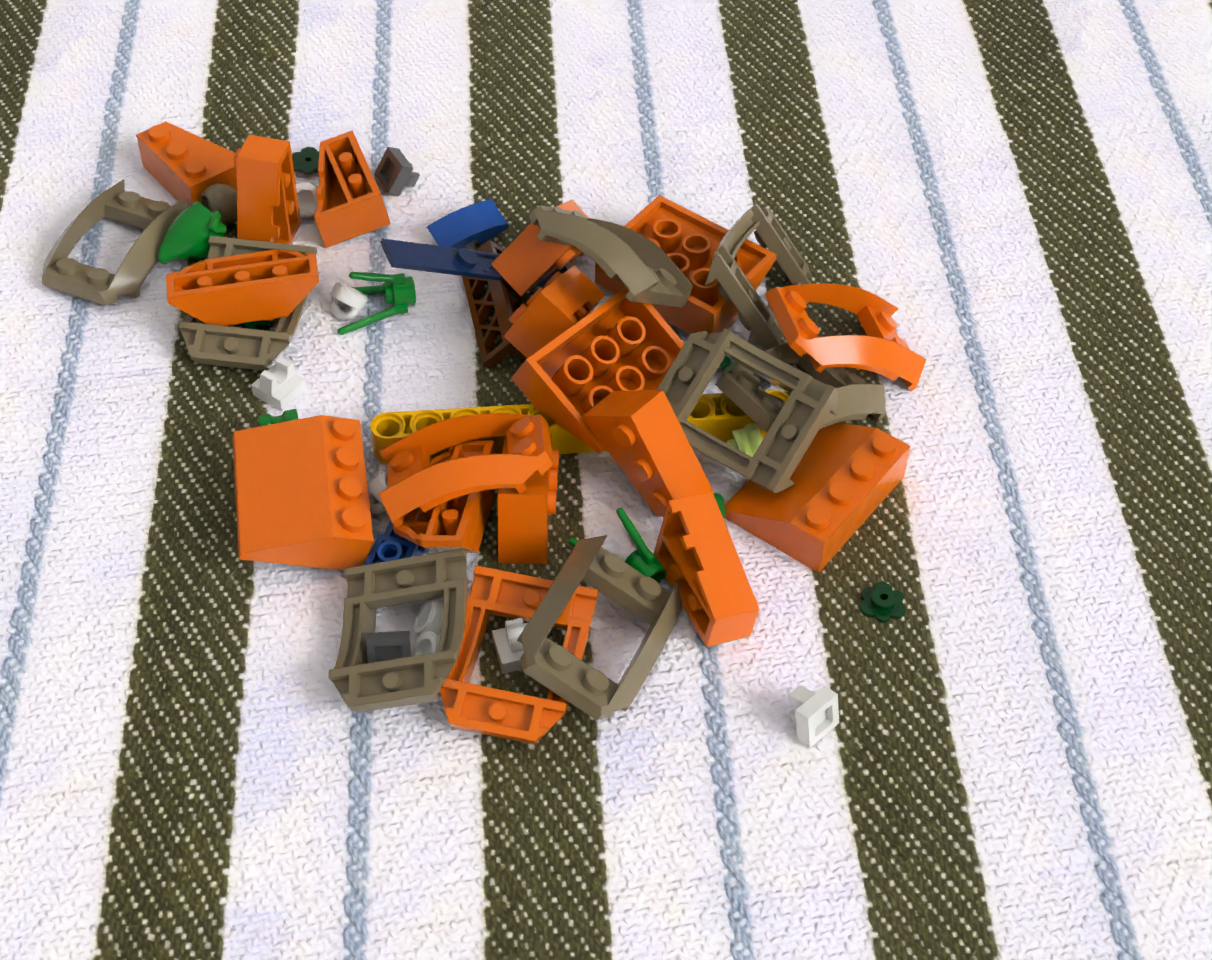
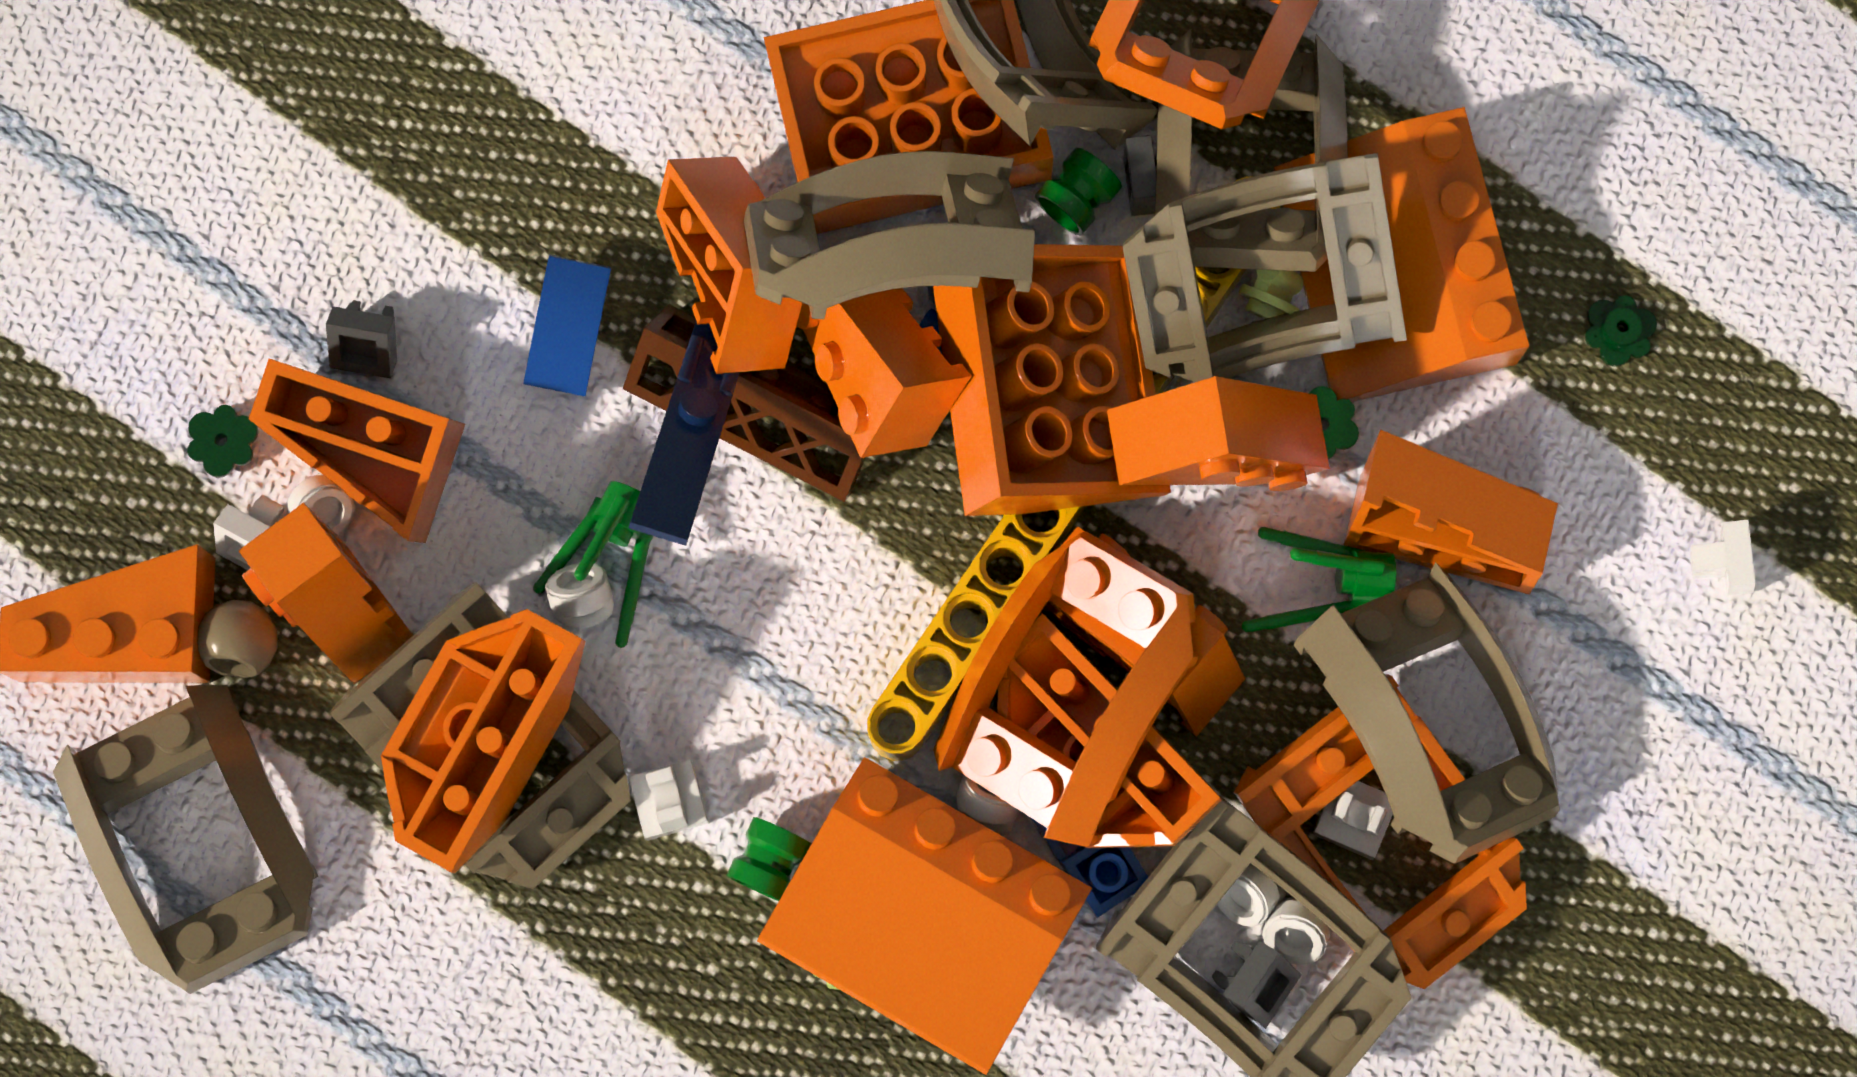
camera: 45 degrees left, 30 degrees up
(190, 234) = (284, 728): green hat -> none

